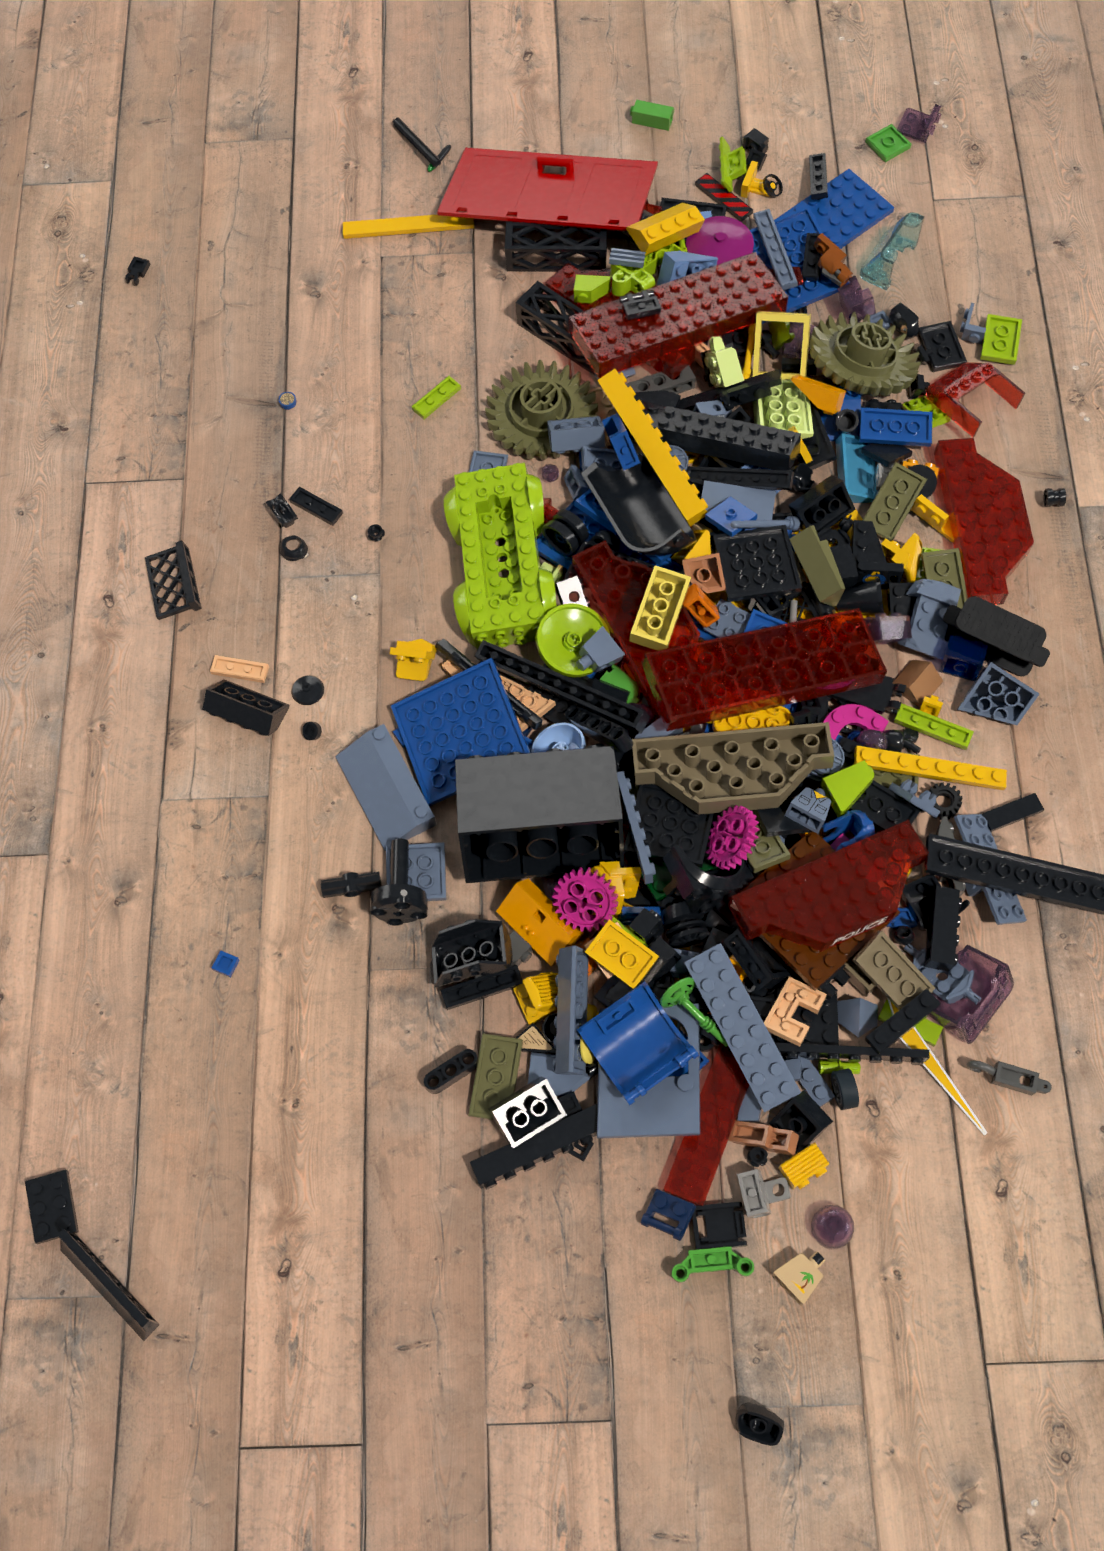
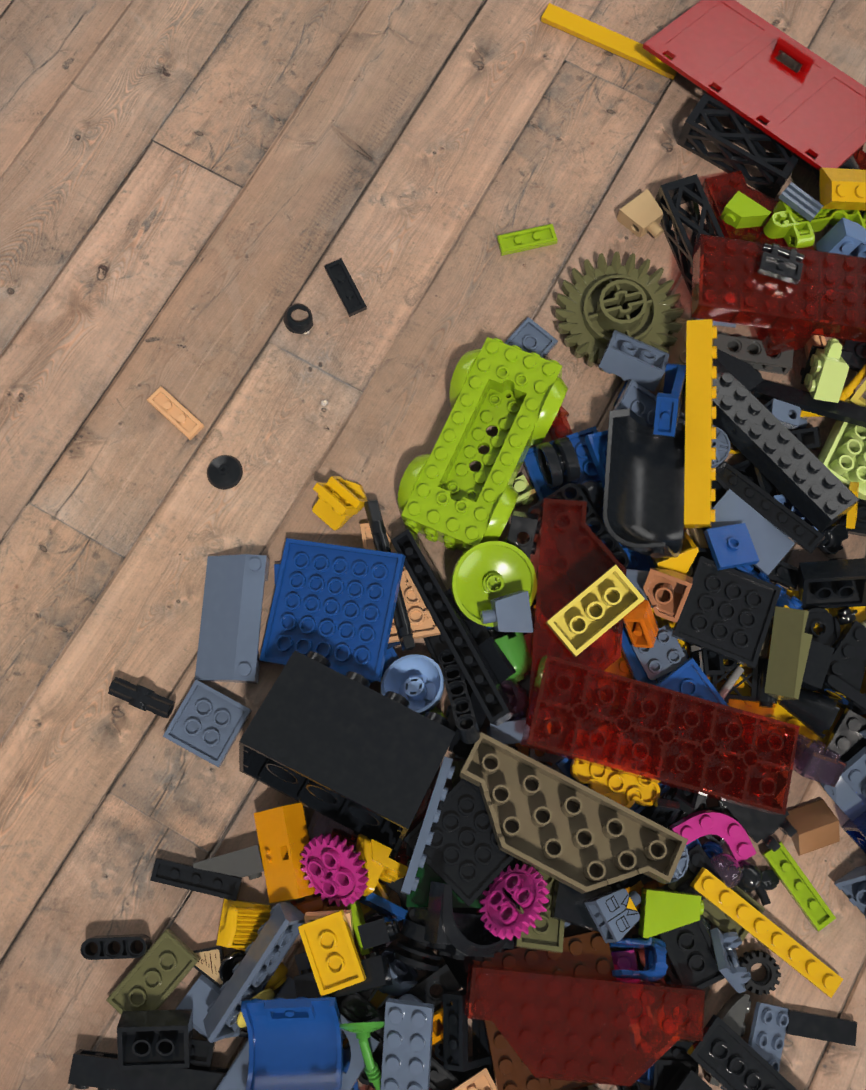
camera: 25 degrees right, 10 degrees up
(187, 577) = (184, 288): black fence -> none
(245, 707) = (155, 456): black slope -> none
(282, 511) = (308, 274): black hips -> none
(287, 400) = (384, 161): tile -> none
(311, 731) = (201, 517): black tile -> none
(375, 529) = (383, 344): black plate -> none
(399, 901) = (168, 748): black piece -> none
(470, 950) = (199, 849): black slope -> none
(514, 333) = (642, 215): none -> tan torso
(550, 472) = (586, 384): plate -> none
(575, 482) = (603, 405): sand blue slope -> none
(745, 393) = (830, 417): black plate -> none
(791, 522) = (789, 582): sand blue piece -> none
(931, 705) = (810, 864): yellow tile -> none

